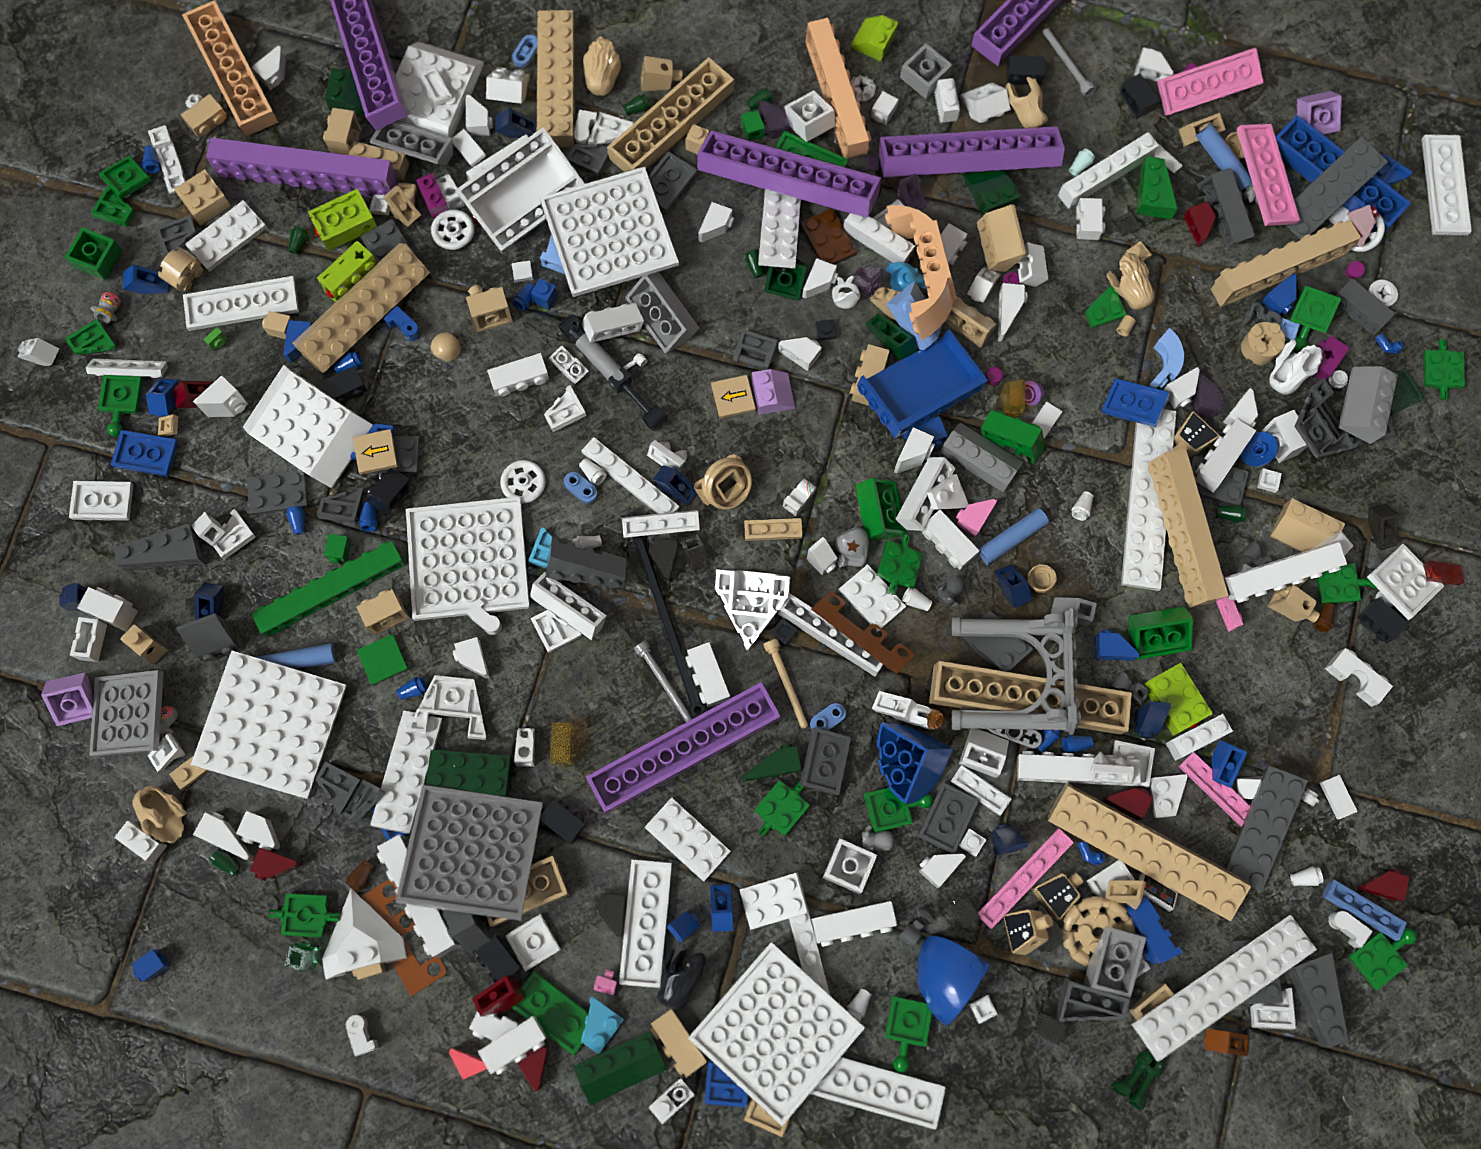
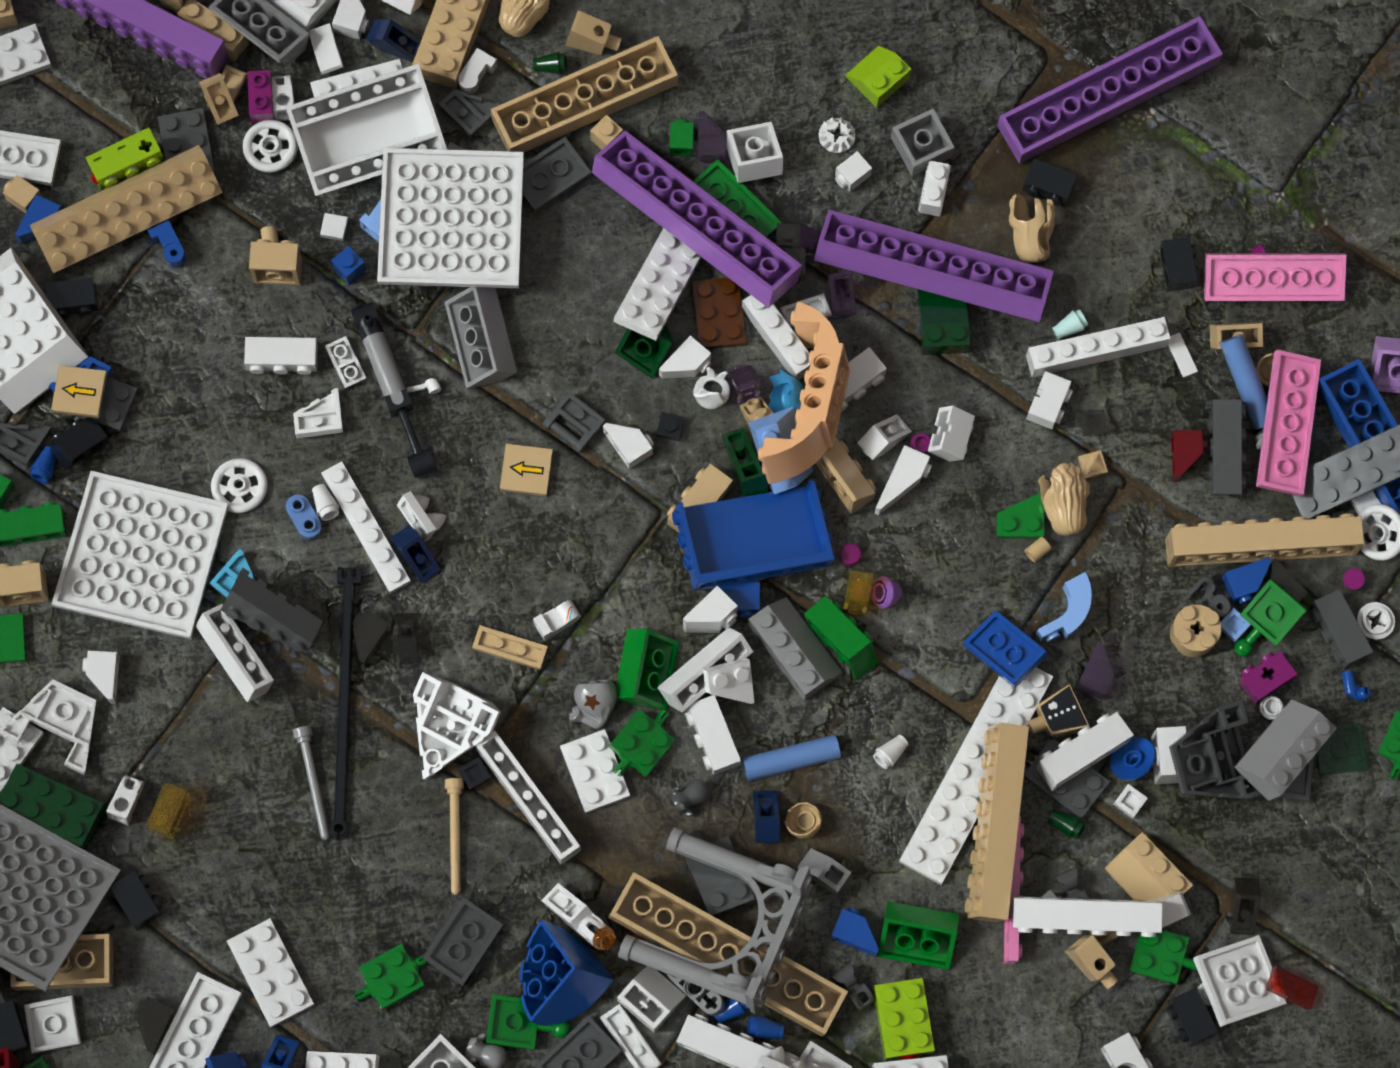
camera: 20 degrees right, 0 degrees up
(297, 239) = (81, 95): dark green cone -> none
(342, 219) = (142, 90): lime piece -> none
(348, 361) = (86, 269): blue cone -> none
(379, 205) = (192, 87): white plate -> none
(413, 688) = (22, 685): blue cone -> none
(445, 346) = (209, 289): tan hair -> none
(487, 622) = (137, 640): white leg -> none
(523, 298) = (321, 261): blue cone -> none
(554, 631) = (208, 676): white wing -> none
(587, 541) = (285, 585): white cone -> none
(608, 129) = (504, 83): white wing -> none
(612, 322) = (415, 329): white brick -> none
(660, 523) = (379, 594): white plate -> none
(683, 748) = (304, 866): medium lavender brick -> none
(707, 675) = (365, 792): white brick -> none
(708, 486) = (468, 557): tan piece -> none
(715, 222) = (588, 246): white slope -> none
(752, 260) = (612, 308): dark green cone -> none
(762, 94) = (708, 104): dark green cone -> none
(772, 391) = (575, 480): lavender slope -> none
(779, 763) = (407, 924): dark green slope -> none
(822, 557) = (552, 701): white slope -> none
(828, 718) = (486, 894): medium blue plate -> none
(837, 88) = (802, 130): light nougat brick -> none
(864, 639) = (559, 815): dark orange piece -> none
(916, 599) = (645, 791): white cone -> none
(974, 516) = (756, 717): bright pink slope -> none
(986, 102) = (982, 206): white slope -> none
(1001, 238) = (924, 389): tan slope -> none
(1047, 418) = (890, 631): white tile -> none
(1087, 87) = (1118, 230): light grey piece -> none
(1151, 718) = (858, 1031): dark blue slope -> none
(1152, 65) = (1211, 230): white slope -> none
(1155, 190) = (1144, 393): green wedge -> none
(1183, 389) = (1071, 652): white slope -> none
(1244, 410) = (1134, 706): white slope -> none
(1295, 368) = (1216, 675): white hair -> none
(1326, 618) = (1124, 989): reddish brown cone -> none
(1364, 220) = (1378, 525): slope -> none

